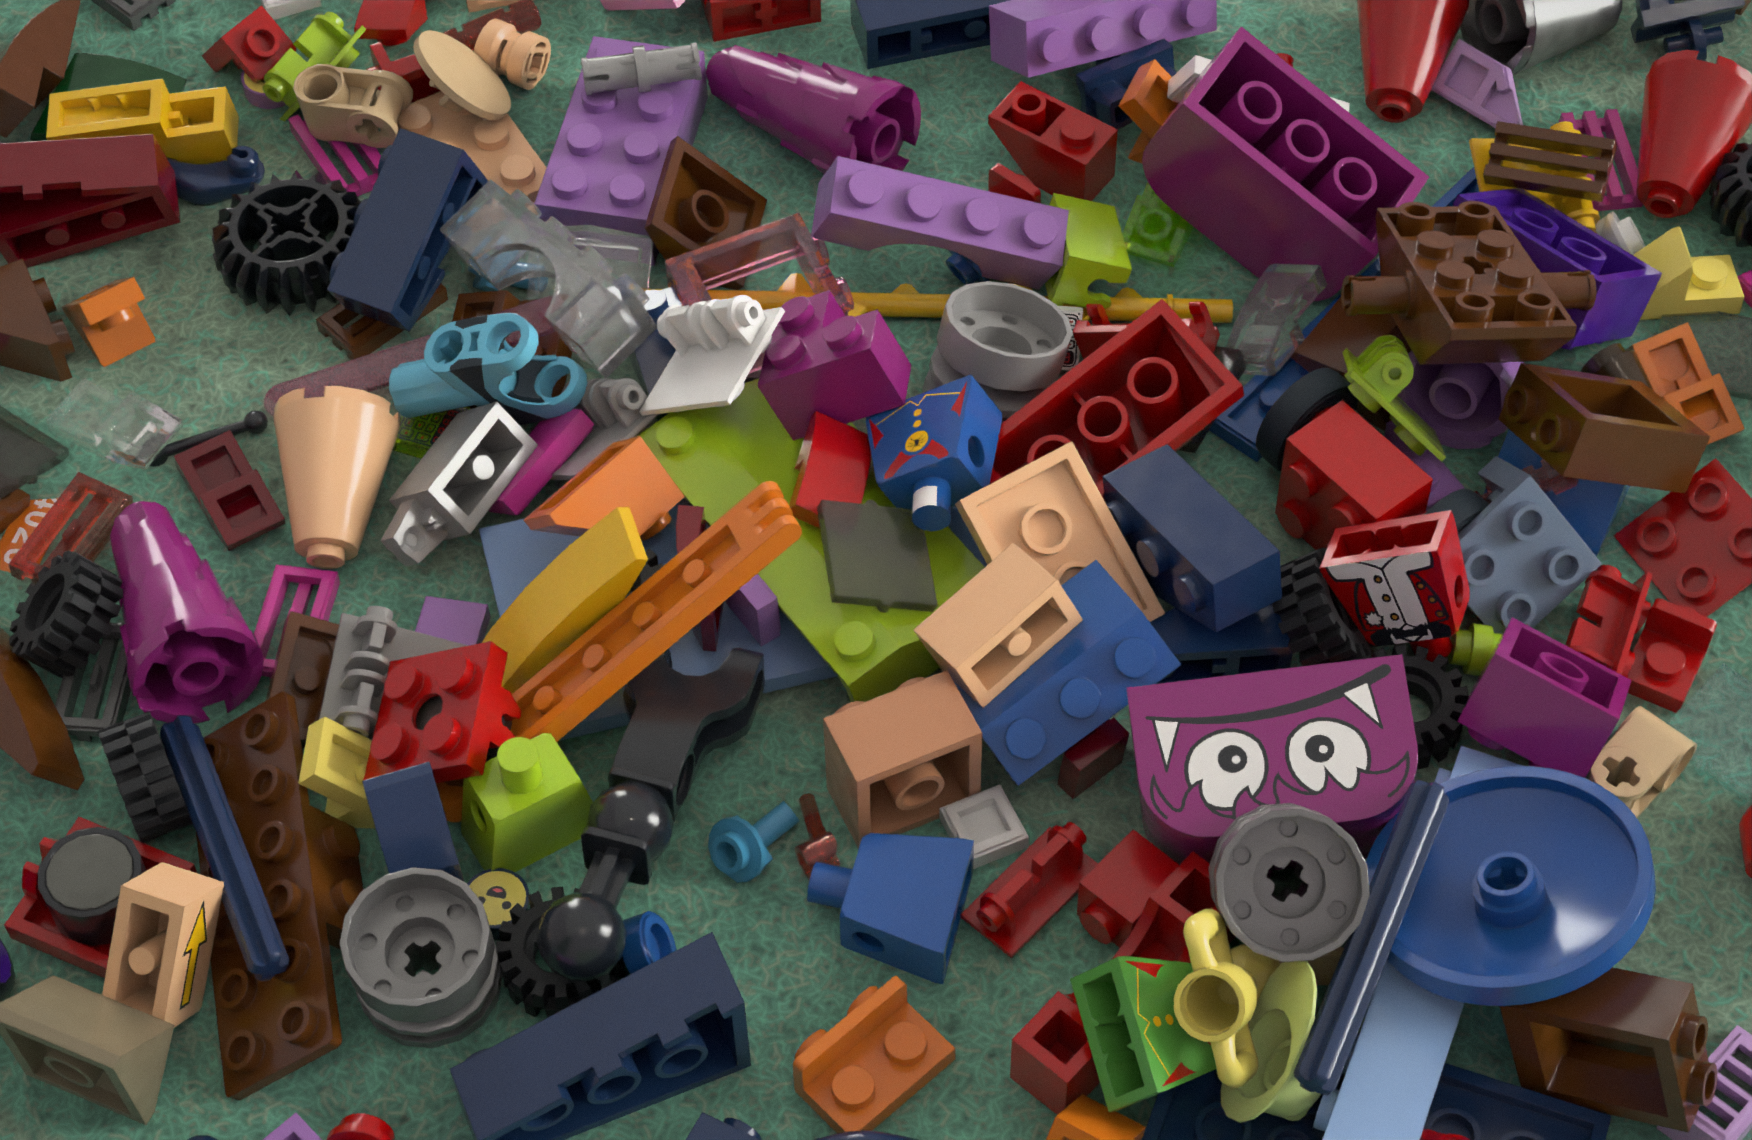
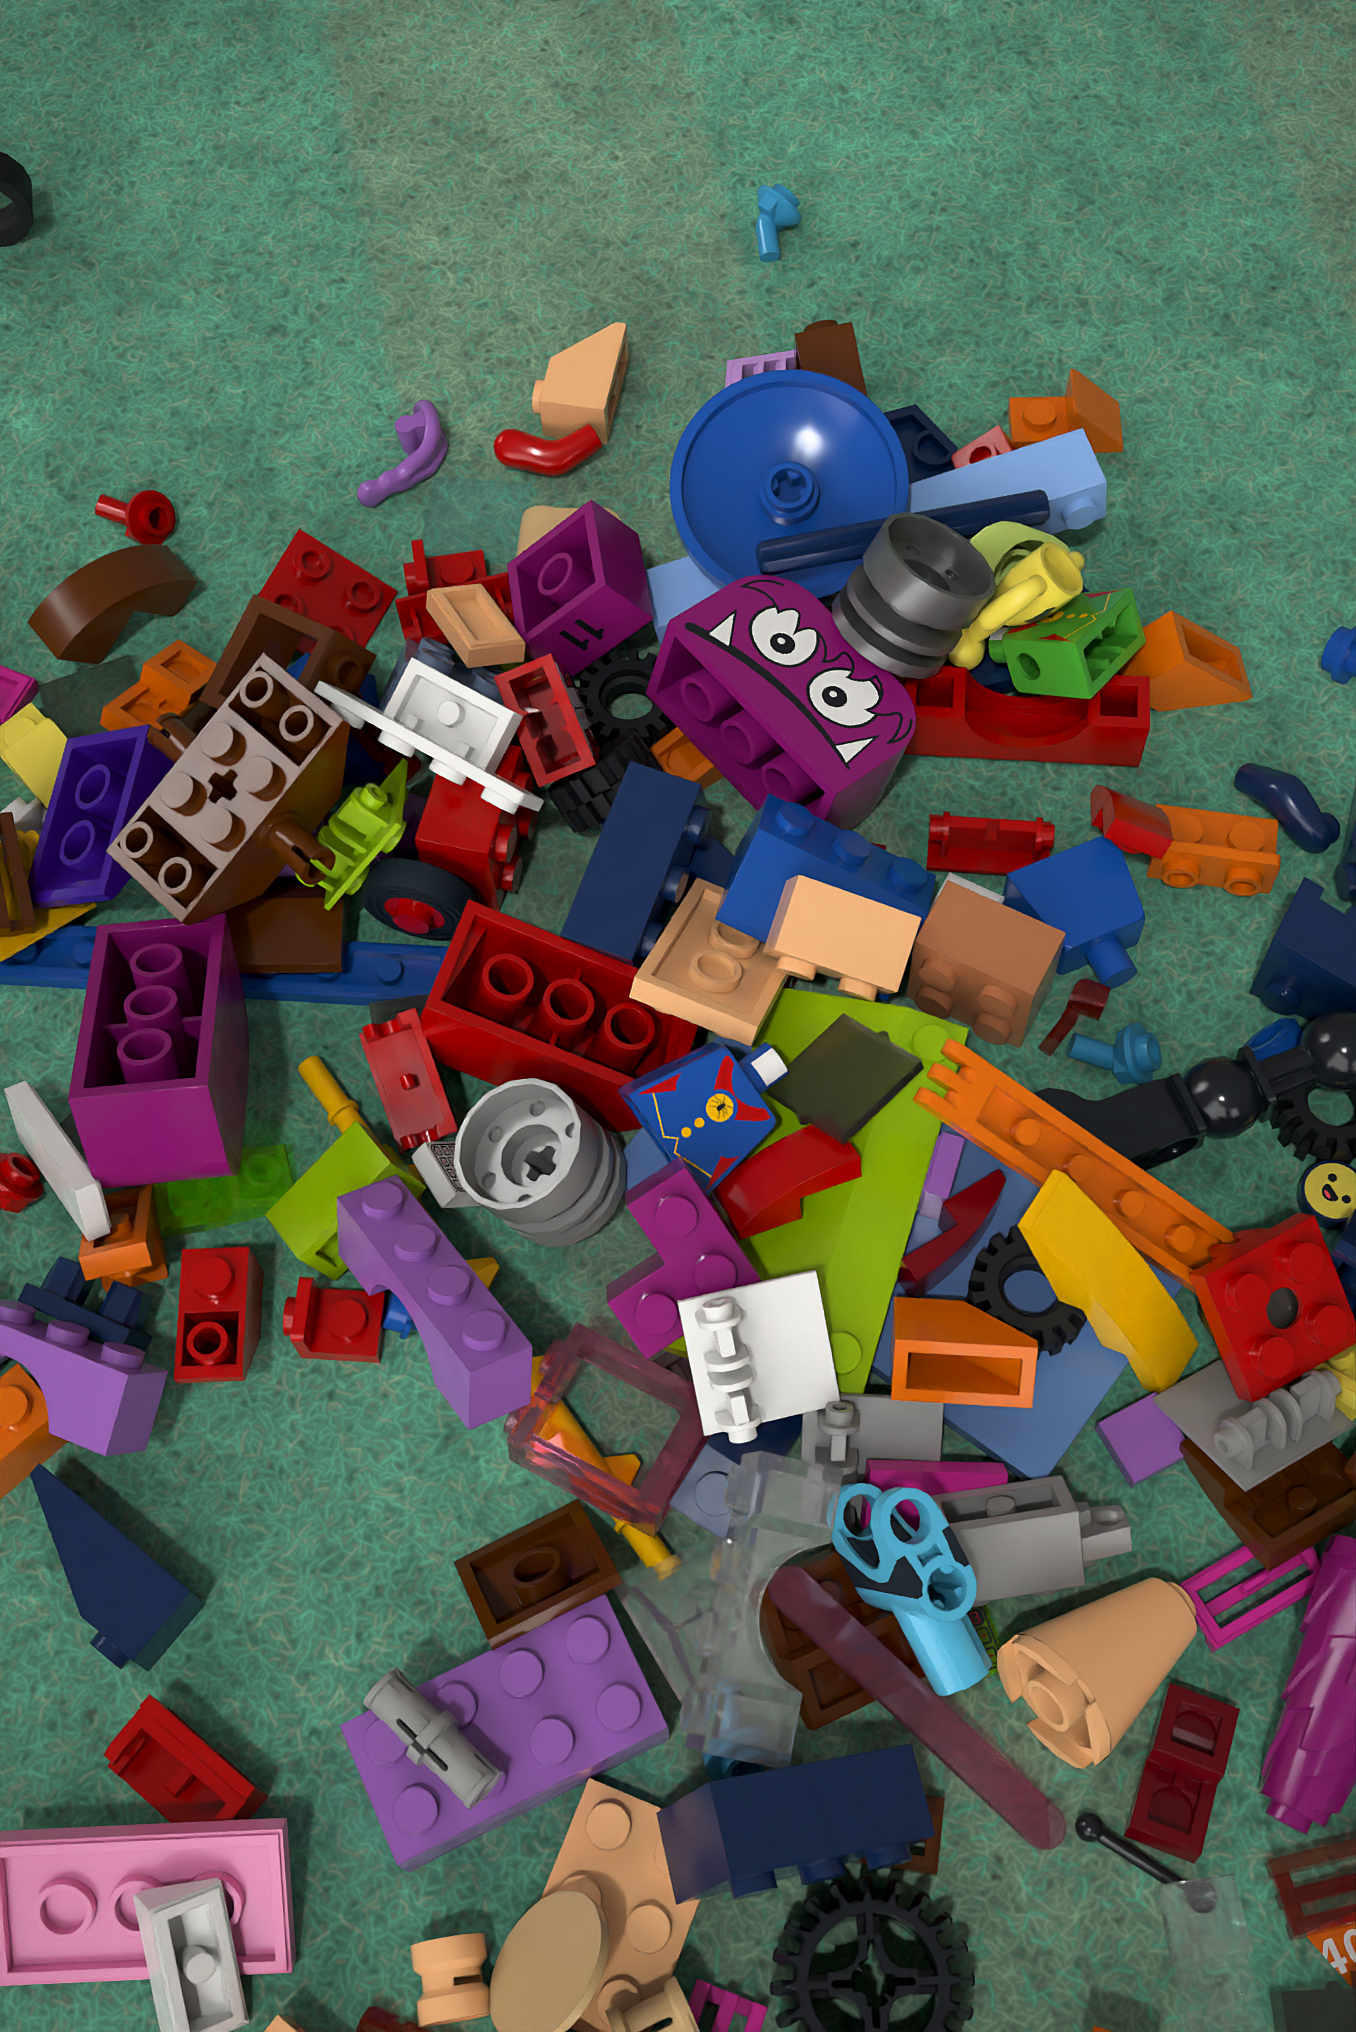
camera: 125 degrees left, 10 degrees up
(523, 804) = (1252, 1191): lime torso -> none
(818, 108) = (328, 1563): magenta cone -> none
(946, 980) = (1130, 822): none -> red slope
(1119, 887) = (944, 772): red brick -> none
(1268, 319) = (304, 1011): clear slope -> none
(1421, 443) = (446, 721): none -> white bracket
(1564, 599) = (475, 625): none -> light nougat tile

